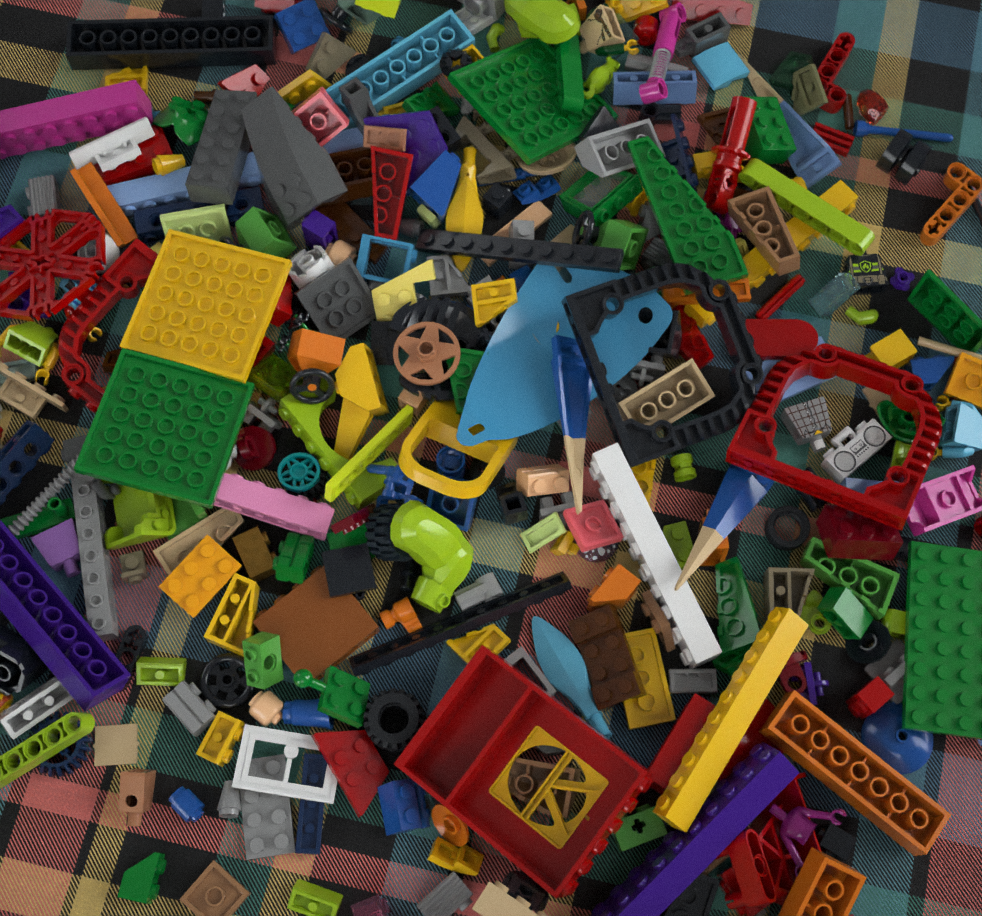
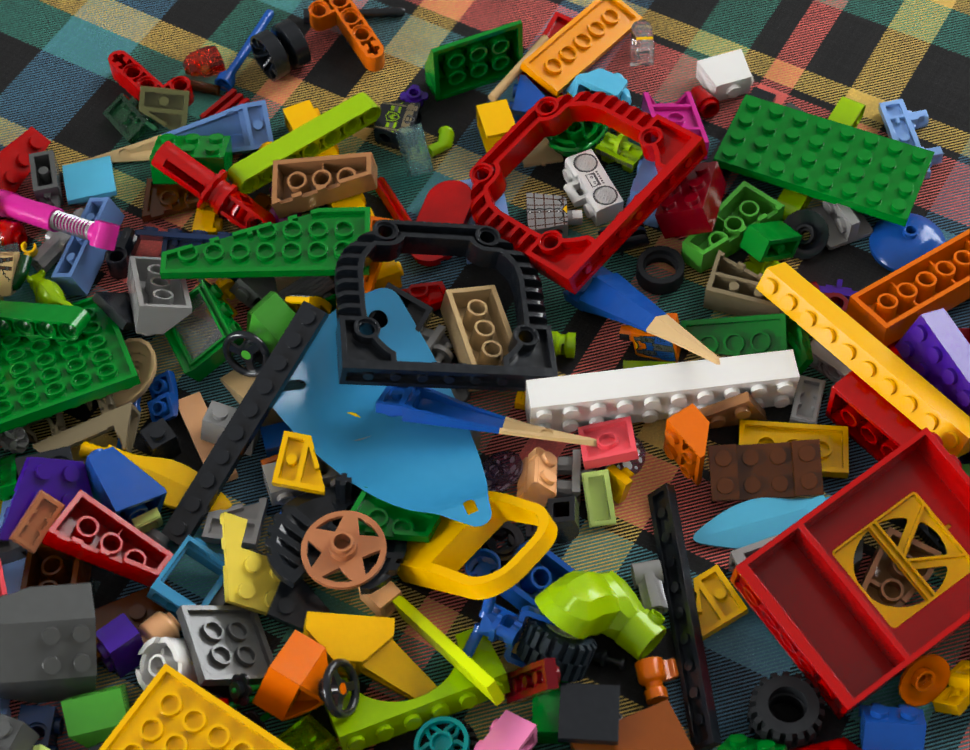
camera: 70 degrees left, 15 degrees down
(544, 451) = (502, 470): none -> dish
(639, 255) = (295, 302): none -> yellow slope
(869, 698) = (866, 246): red brick -> none

